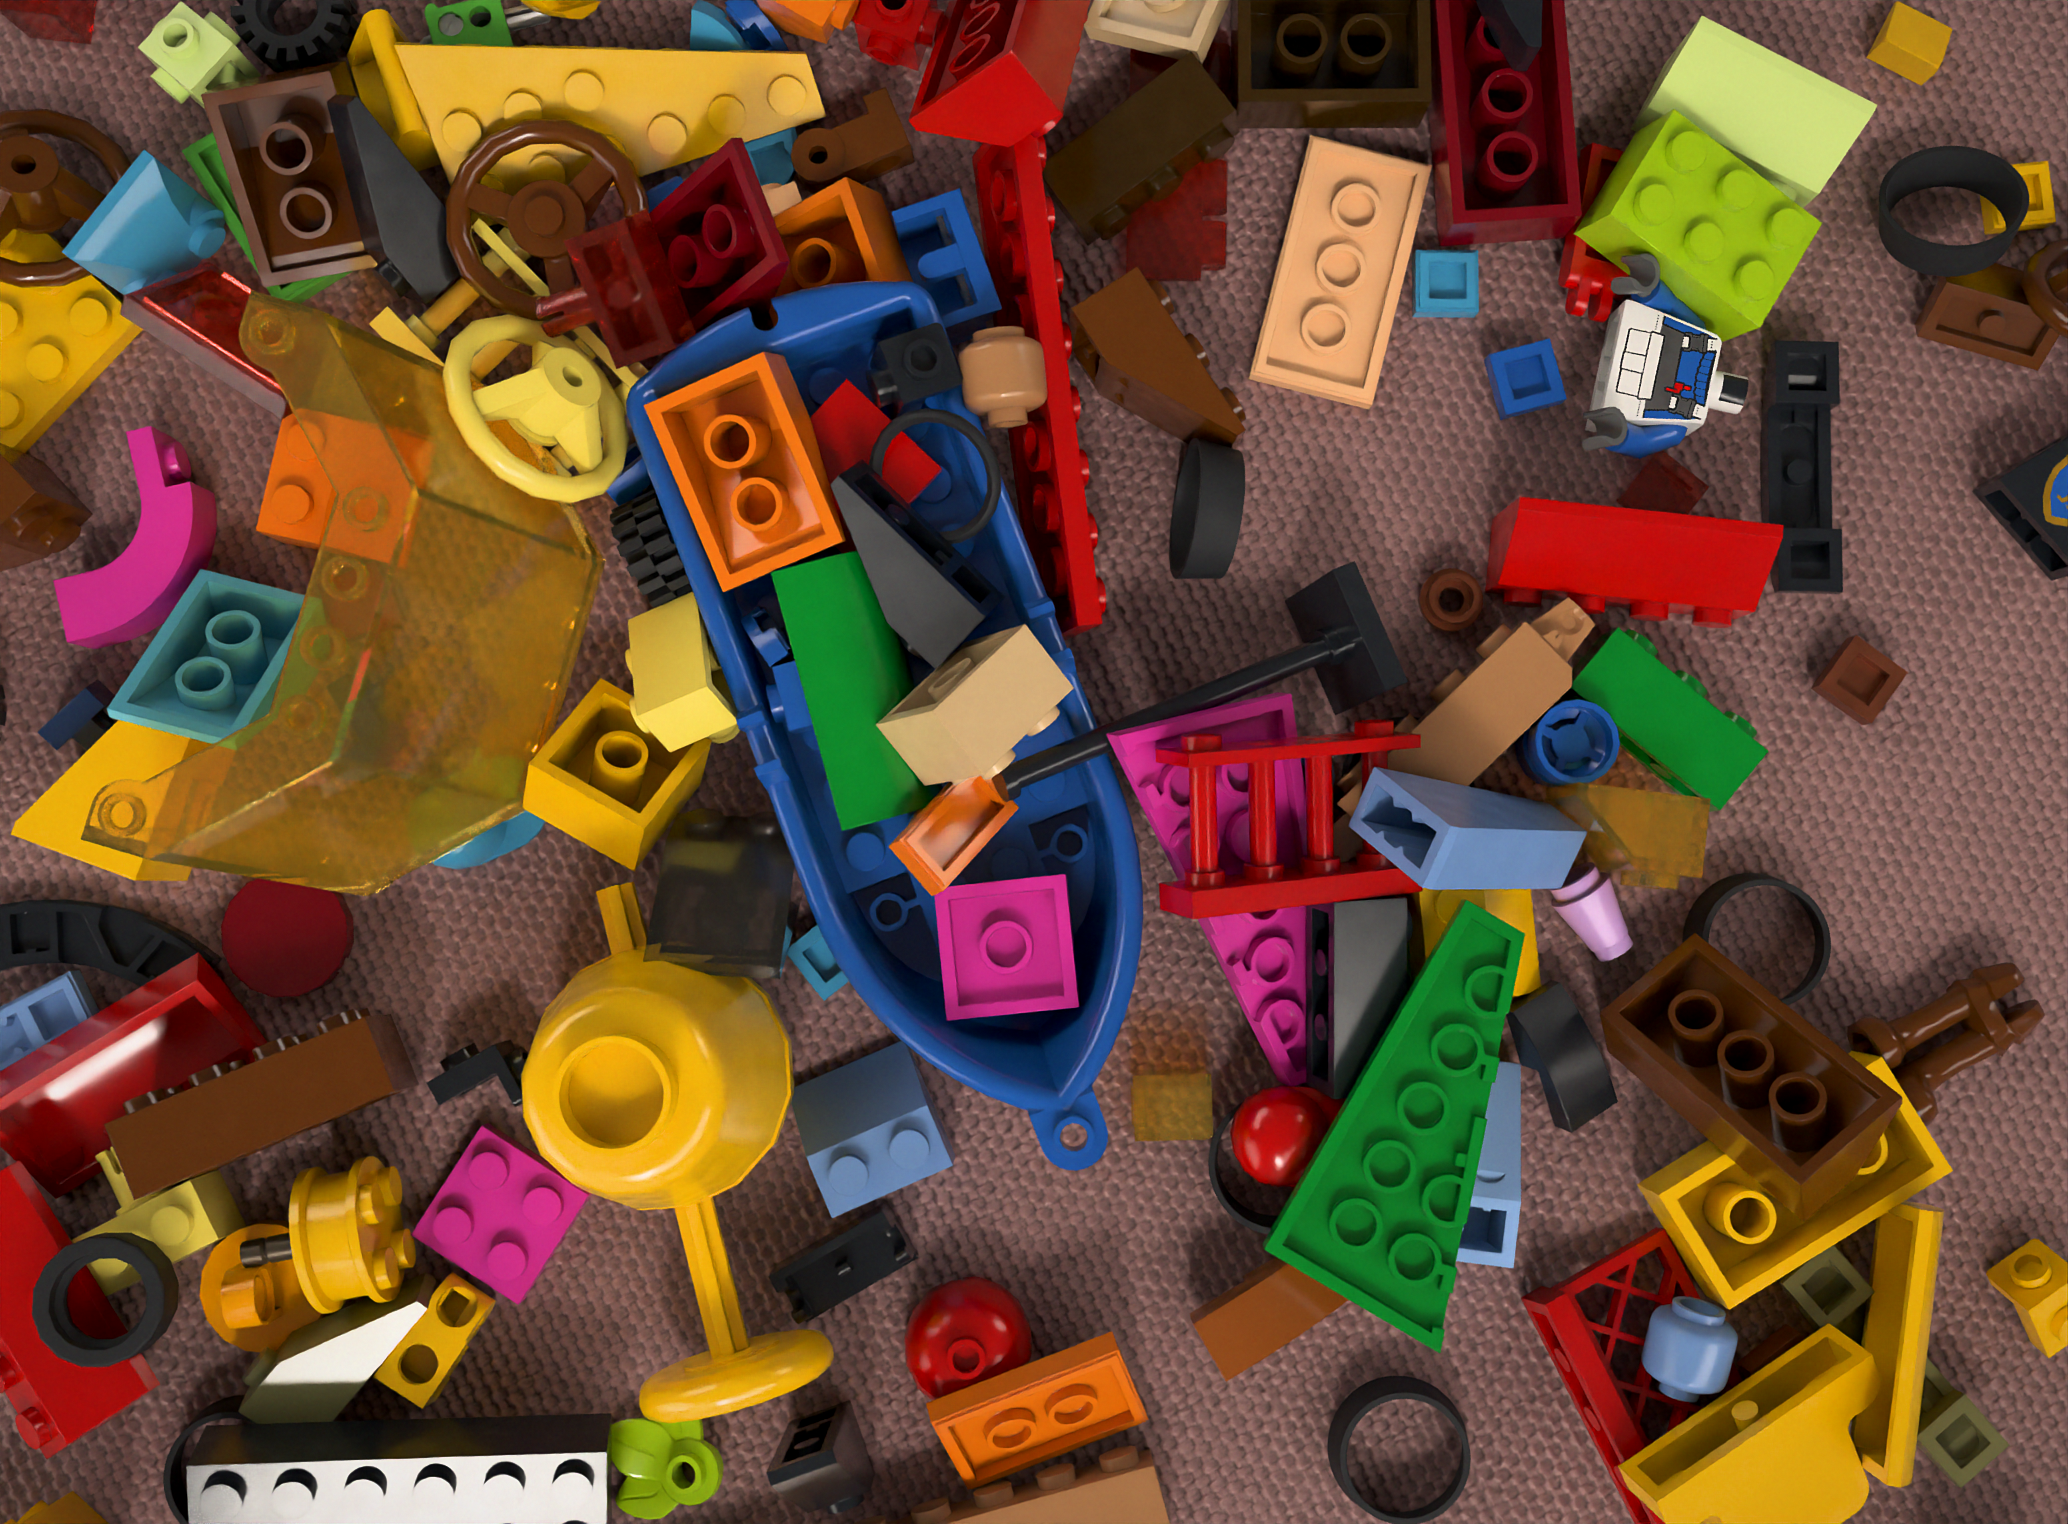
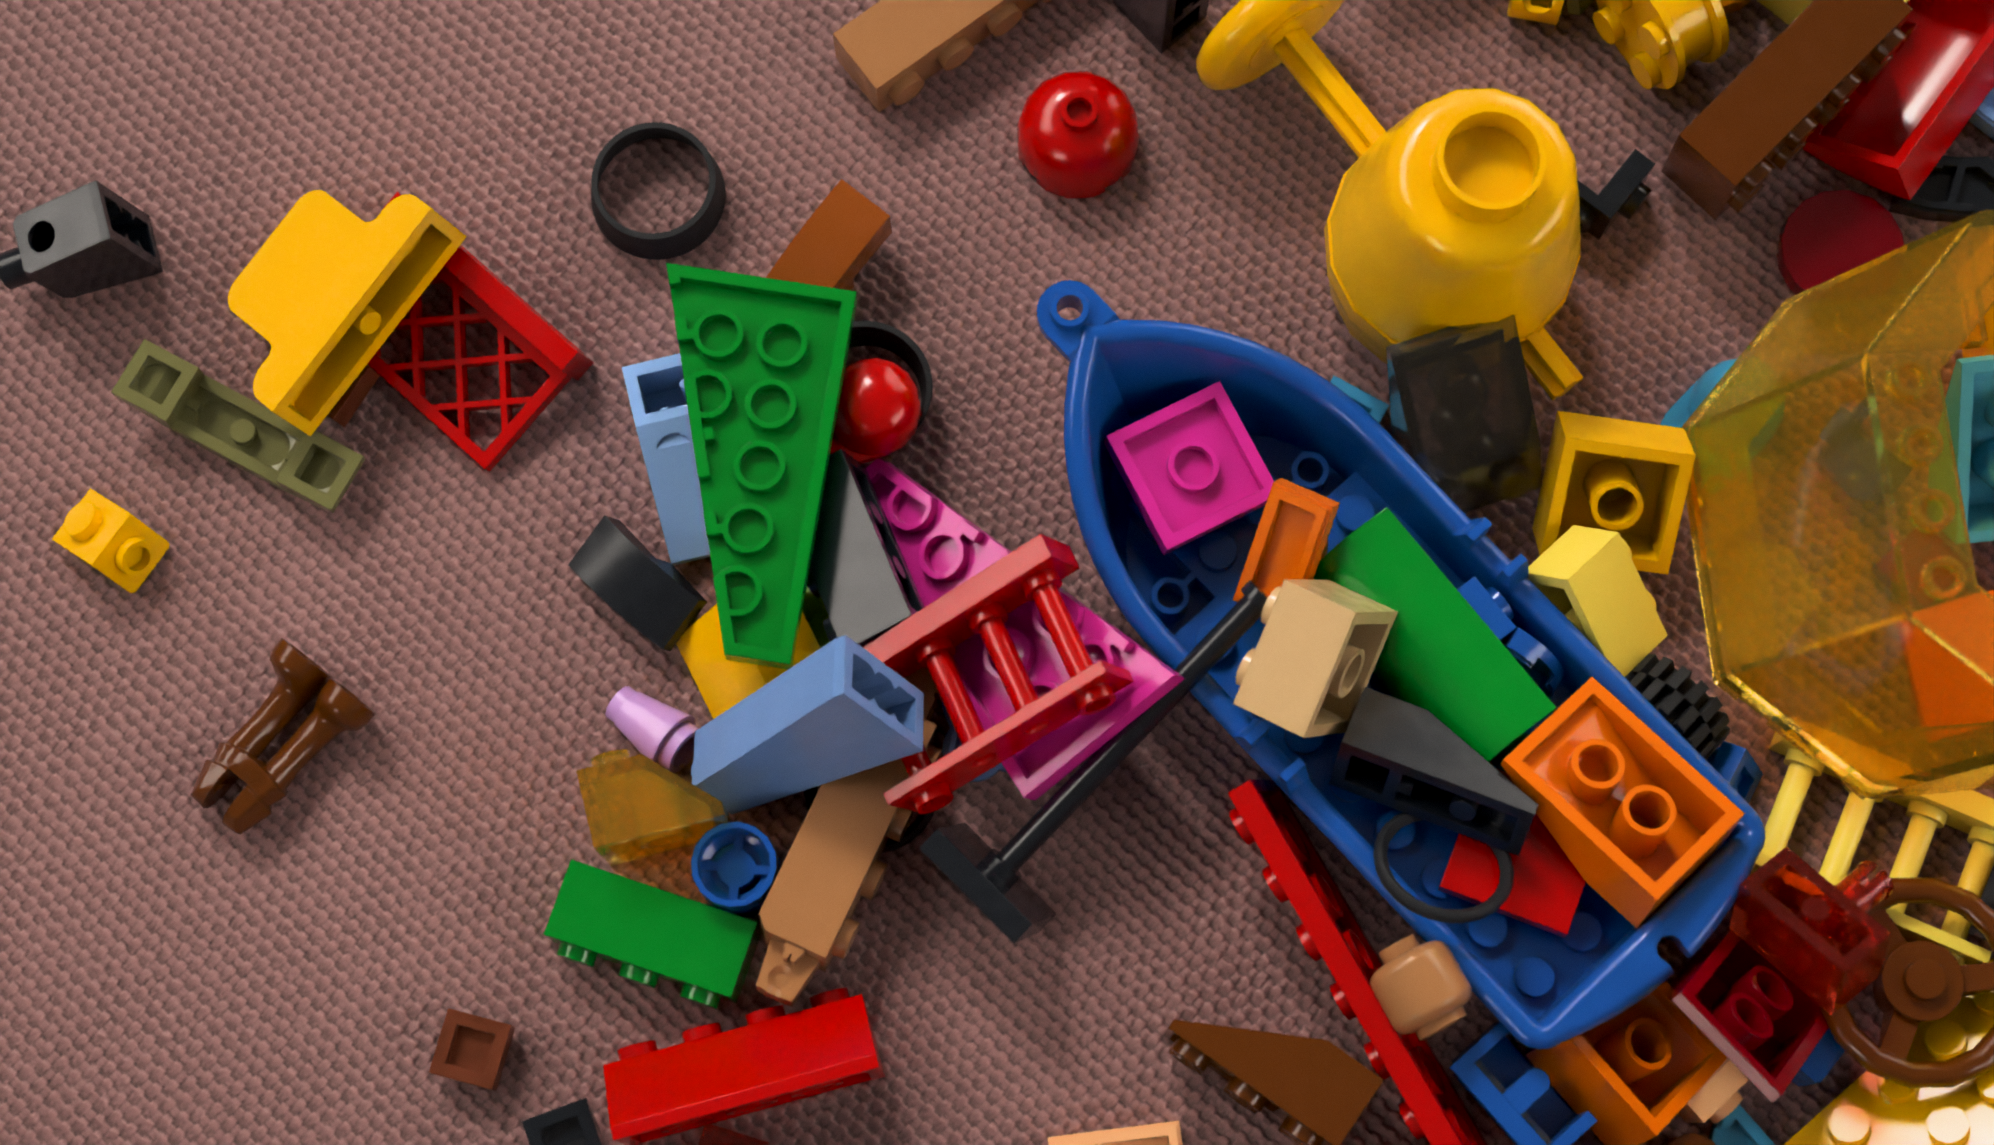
camera: 160 degrees right, 10 degrees down
(501, 1213) = (1551, 70): dark pink plate -> none
(547, 405) = (1840, 784): light yellow piece -> none
(843, 1263) = (1218, 160): black hinge -> none
(870, 1128) = (1244, 273): medium blue slope -> none
(912, 369) = (1507, 960): black bracket -> none
(1038, 1411) = (994, 97): orange tile -> none
(1171, 1104) = (982, 403): clear yellow panel -> none
(1206, 511) = (1169, 953): black tyre -> none
(1467, 590) = (891, 954): copper plate -> none
(1689, 1348) = (432, 365): medium blue head -> none
(1710, 901) = (527, 805): black tyre -> none
(1745, 1239) = (386, 551): yellow brick -> none
(1750, 1074) = (469, 615): reddish brown slope -> none
(1898, 1337) = (243, 443): yellow slope -> none

